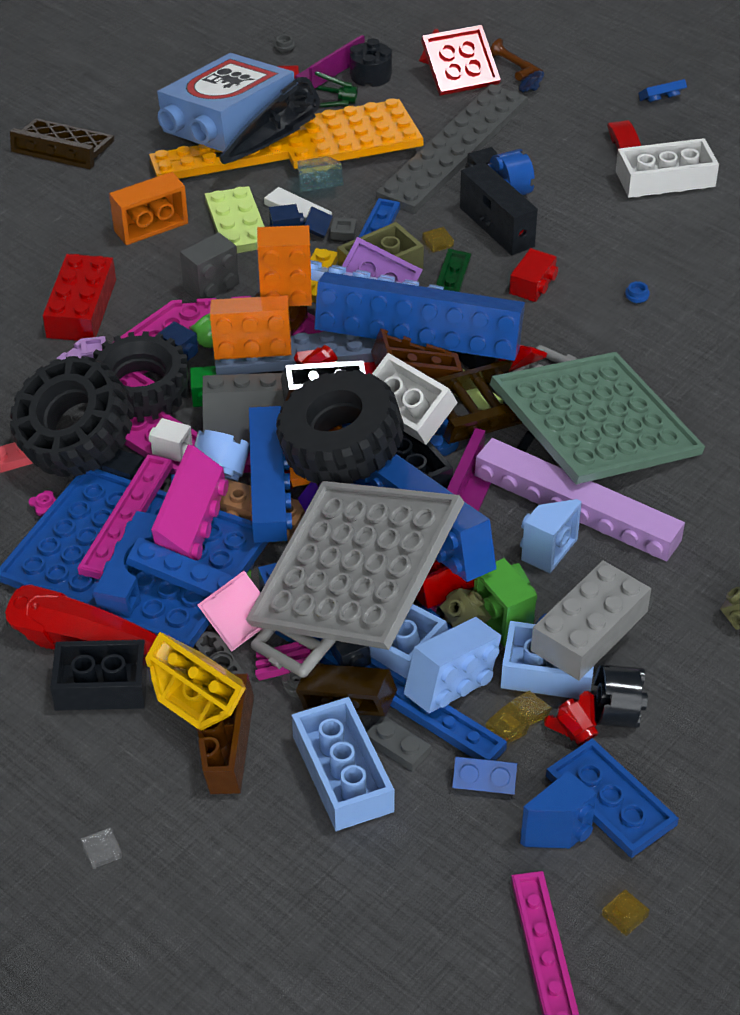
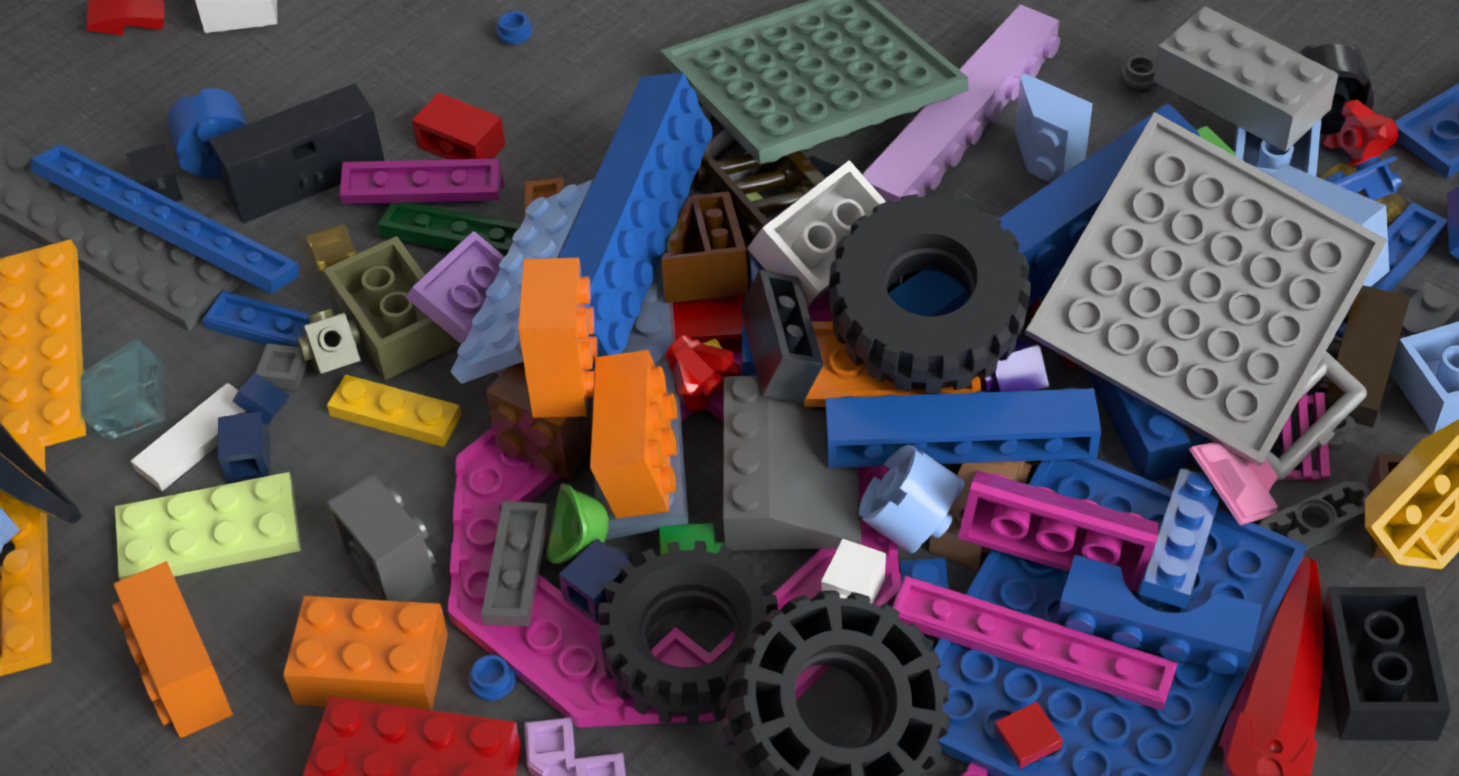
camera: 85 degrees left, 5 degrees up
(65, 513) = (1028, 734): none -> red tile
(131, 320) = (491, 678): none -> blue plate
(147, 275) = (366, 652): none -> orange brick
(182, 313) = (515, 564): none -> dark grey plate
(349, 231) = (345, 339): none -> brick
(440, 167) = (166, 218): none -> blue plate
(481, 259) = (421, 181): none -> magenta panel
(517, 709) = (1371, 177): none -> blue hinge

